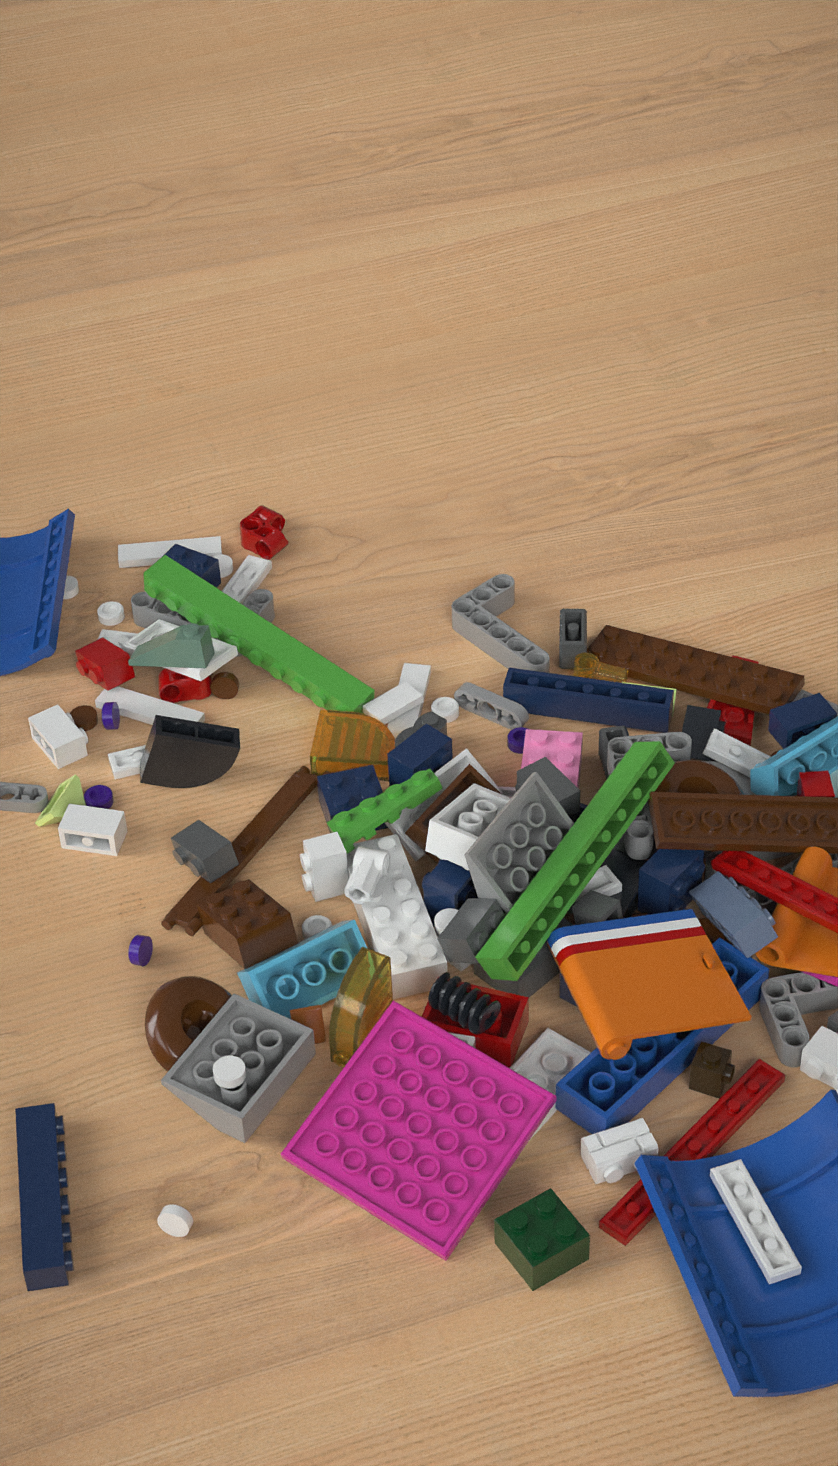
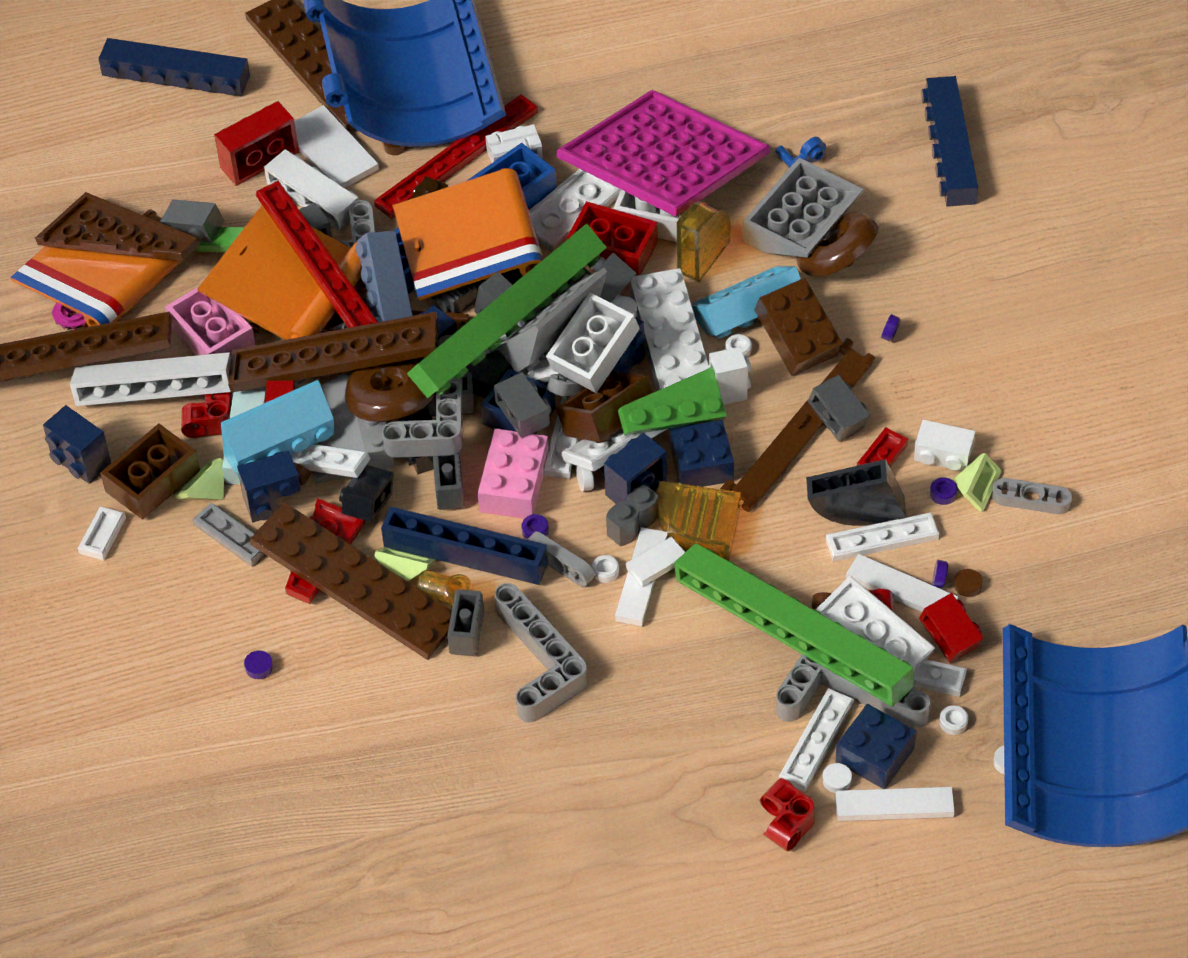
camera: 175 degrees left, 10 degrees up
(58, 736) = (990, 551): white brick -> none
(159, 821) = (887, 446): none -> red plate
(175, 1220) = (848, 118): white tile -> none
(182, 647) = (878, 597): sand green slope -> none
(226, 1169) = (811, 151): none -> blue plate
(229, 1071) = (809, 184): white tile -> none
(311, 1018) = (748, 260): dark orange slope -> none
(368, 868) = (690, 341): white piece -> none
(463, 1004) = (618, 212): black piece -> none
(542, 1239) = (581, 89): dark green brick -> none
(755, 1221) = (427, 86): white tile -> none
(765, 613) = (258, 664): none -> dark purple tile

